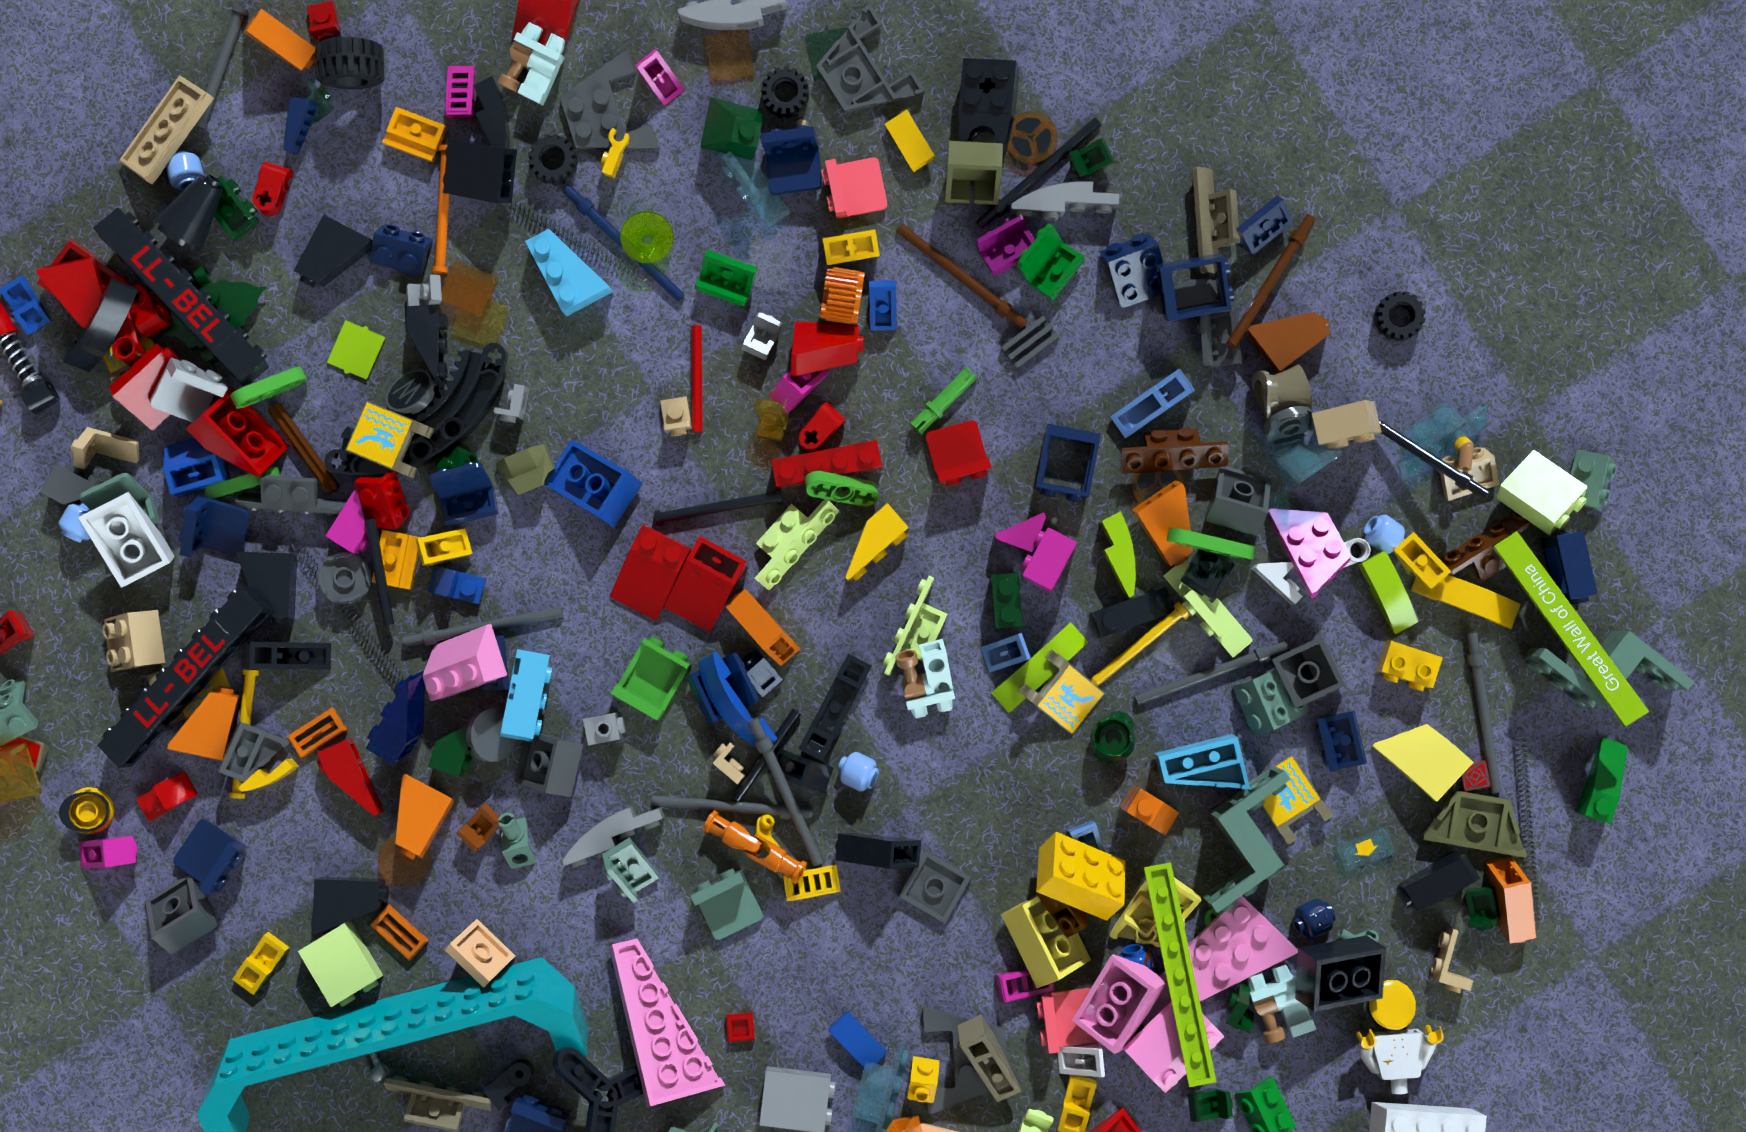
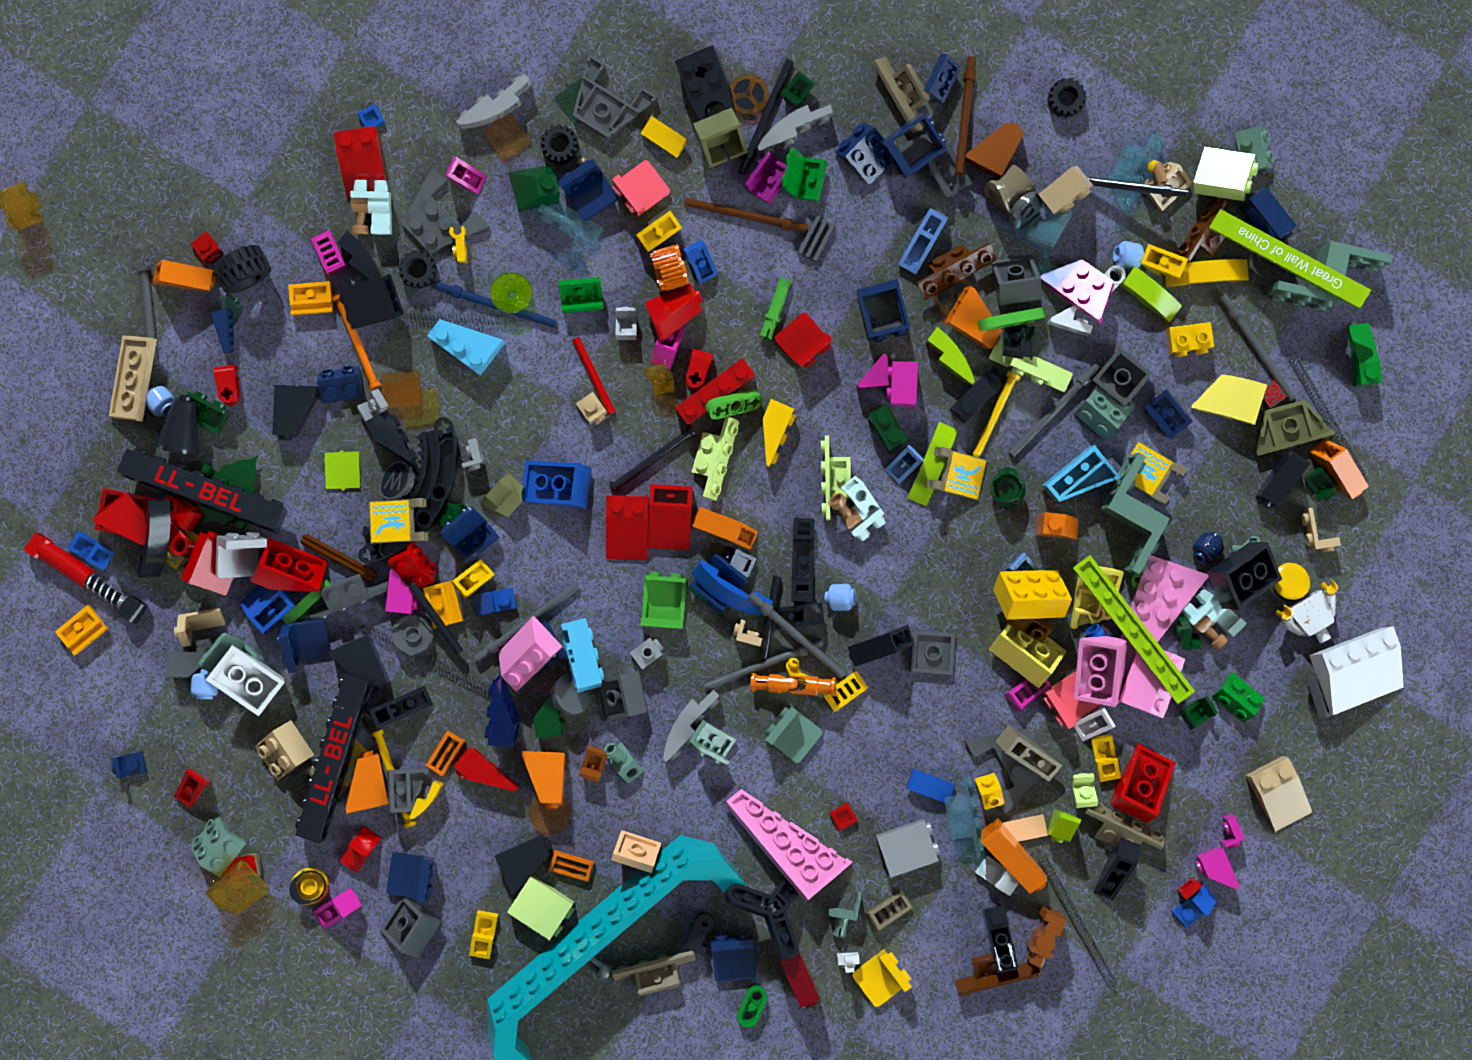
camera: 30 degrees left, 0 degrees up
(268, 387) = (294, 525): bright green beam -> none
(1365, 849) = (1220, 482): clear light blue tile -> none

